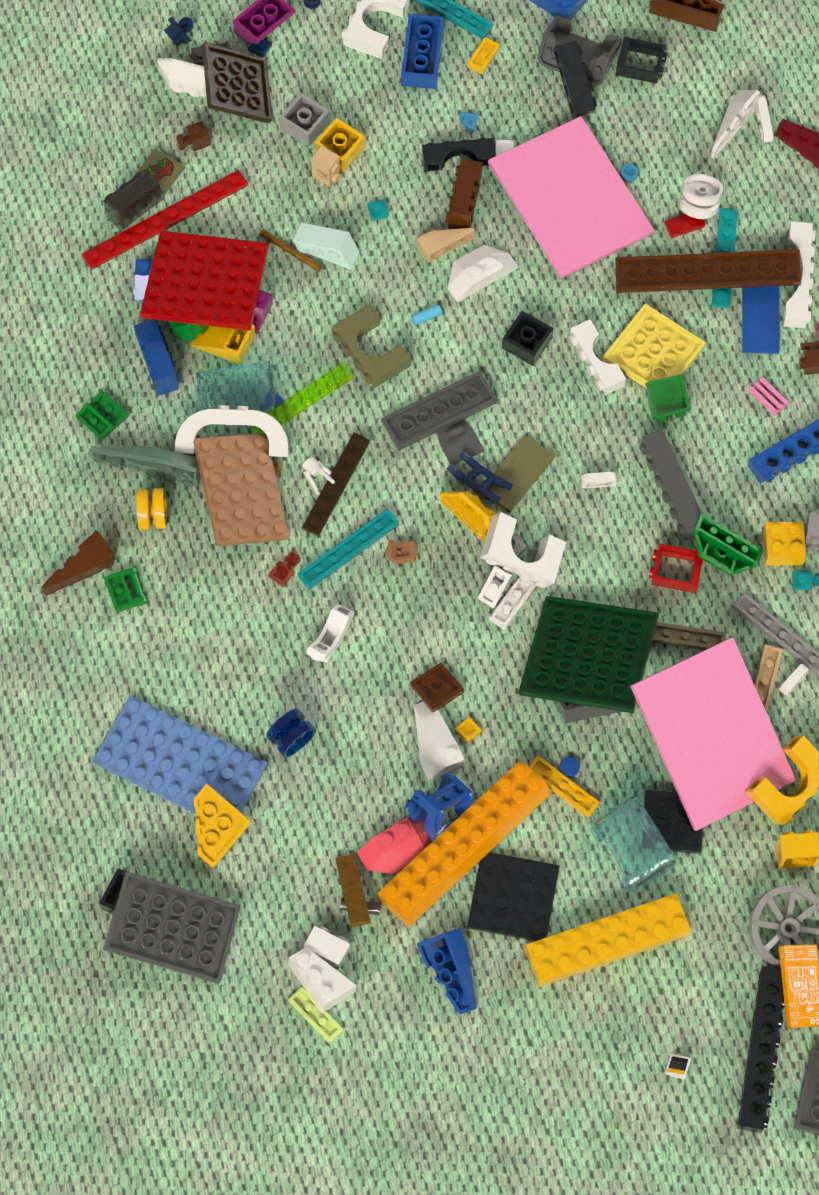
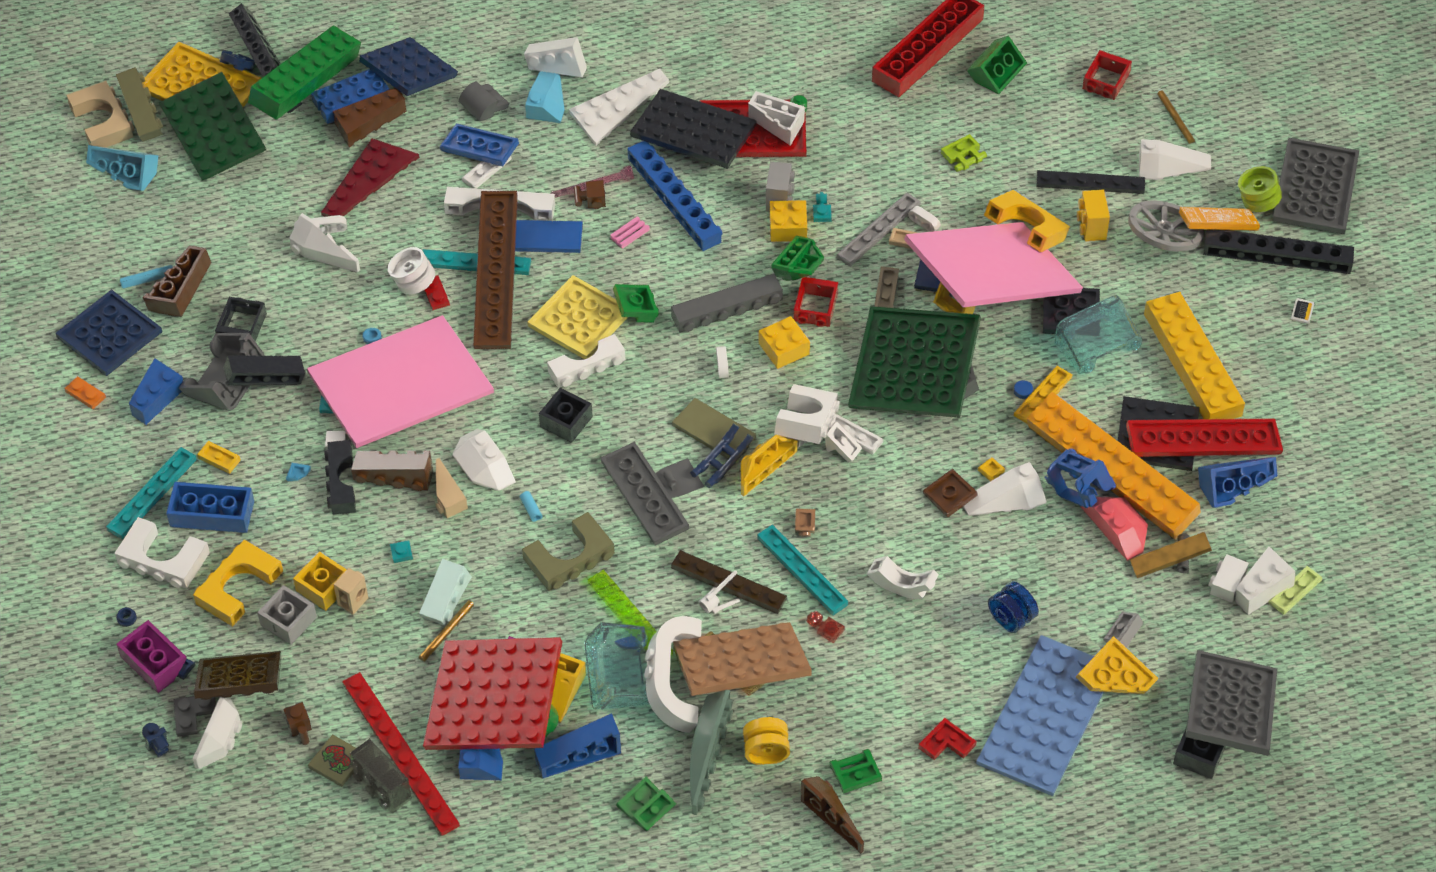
camera: 90 degrees left, 15 degrees down
(157, 672) = (944, 736): none -> red plate
(272, 842) = (1124, 628): none -> light grey slope
(330, 62) = (243, 559): none -> yellow arch
(498, 938) = (1204, 437): none -> red plate
(622, 536) = (784, 342): none -> yellow brick

